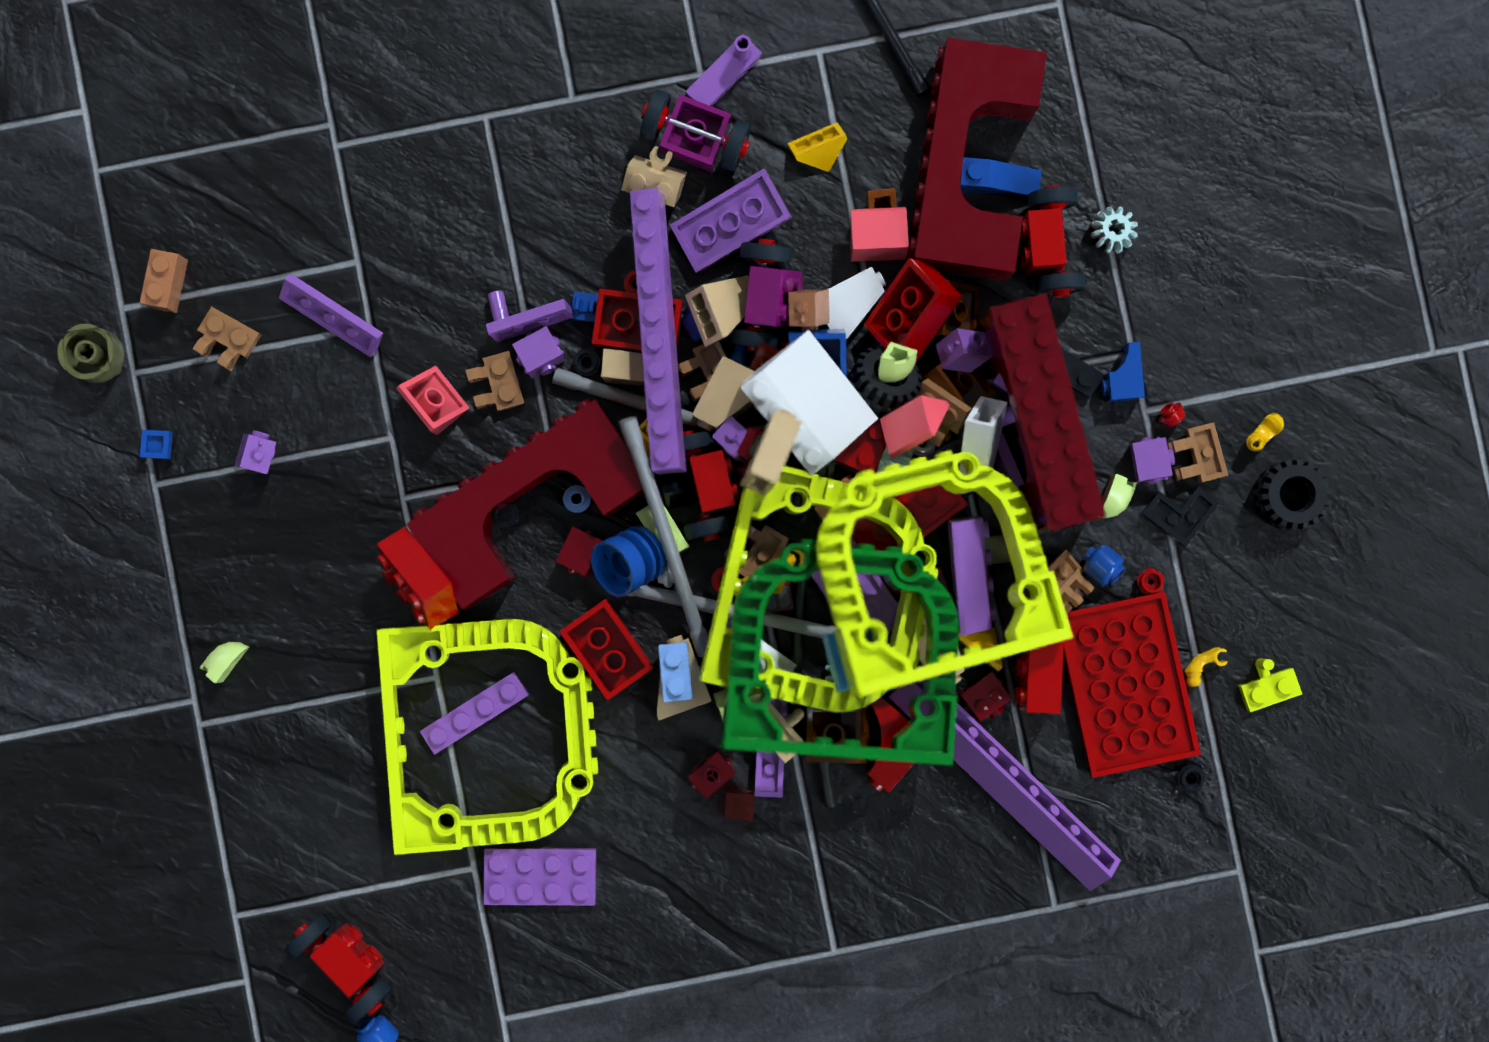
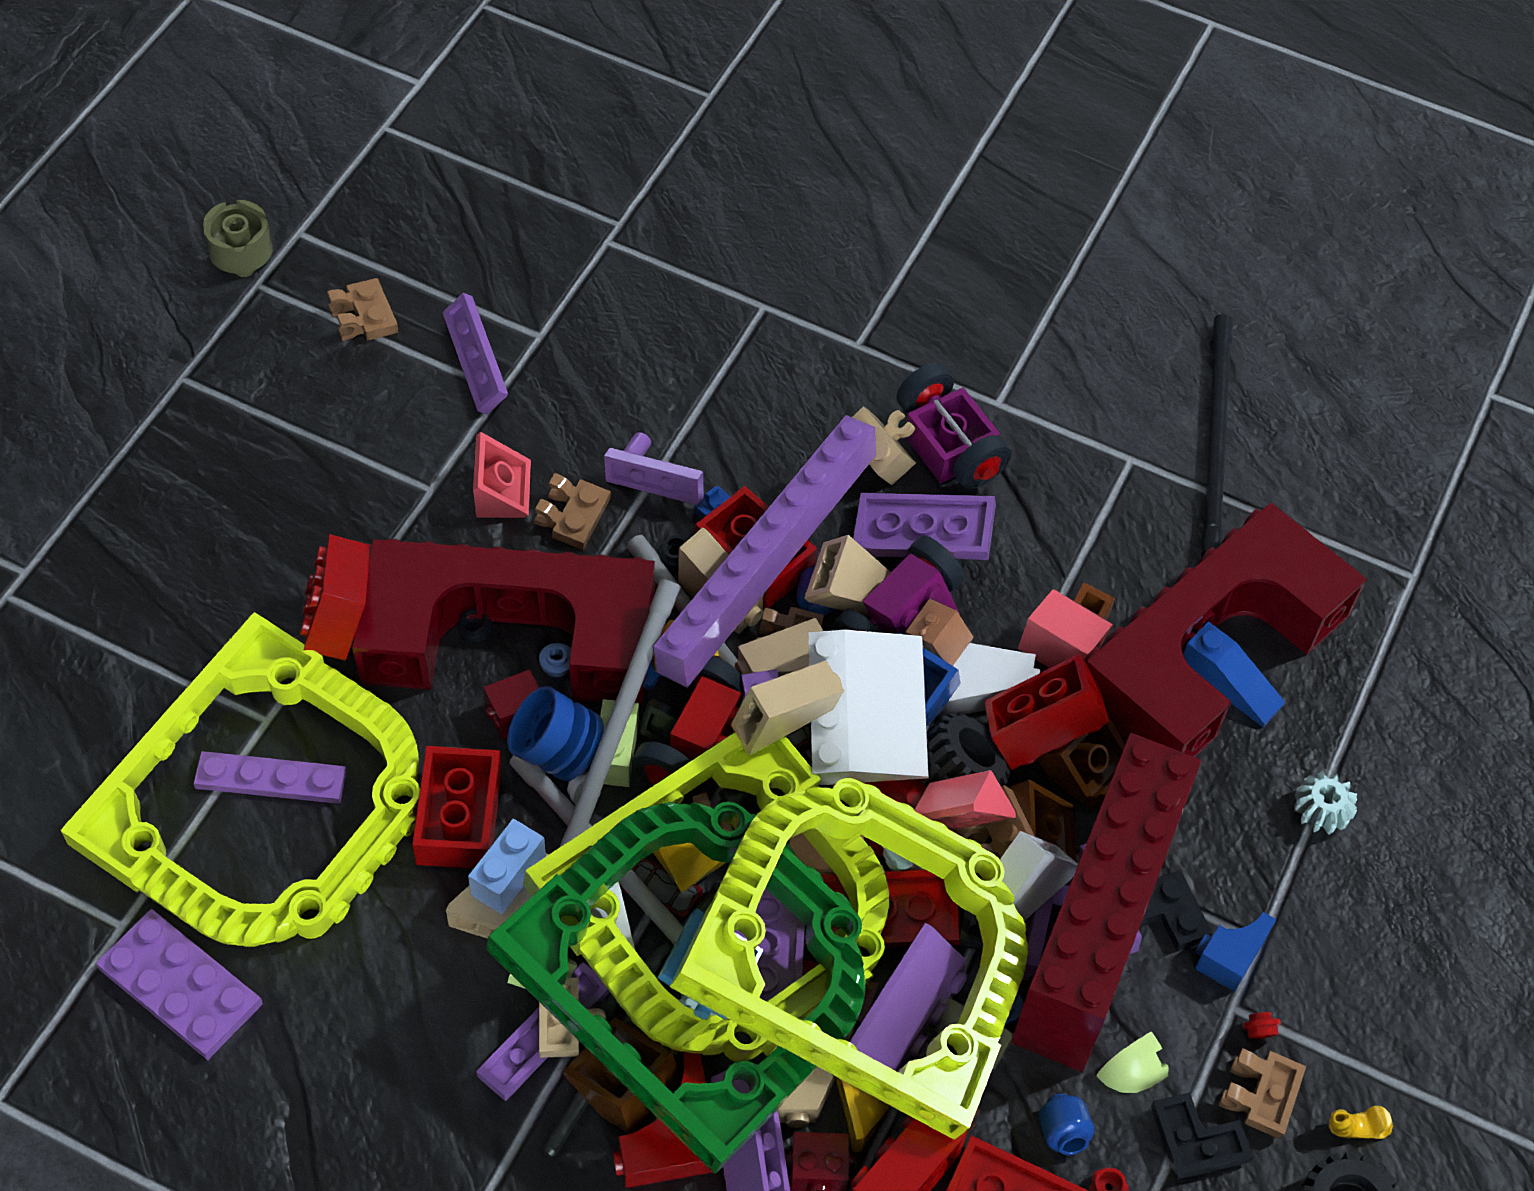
camera: 35 degrees right, 30 degrees down
(156, 444) = (217, 344): blue plate -> none
(163, 280) = (356, 230): nougat brick -> none
(223, 660) = (87, 556): yellowish green brick -> none
(256, 452) = (296, 404): medium lavender head -> none
(539, 353) = (637, 509): medium lavender head -> none
(717, 763) = (452, 1012): dark red head -> none
(725, 71) = (1031, 413): medium lavender piece -> none
(739, 805) = (452, 1069): clear red panel -> none
(820, 147) = (1065, 534): yellow slope -> none
(896, 363) = (988, 737): yellowish green brick -> none
(963, 350) = (1072, 791): medium lavender head -> none
(1045, 244) = (1236, 753): brick -> none
(1068, 574) = (1011, 1103): medium nougat plate -> none
(1152, 460) = (1204, 1054): medium lavender head -> none

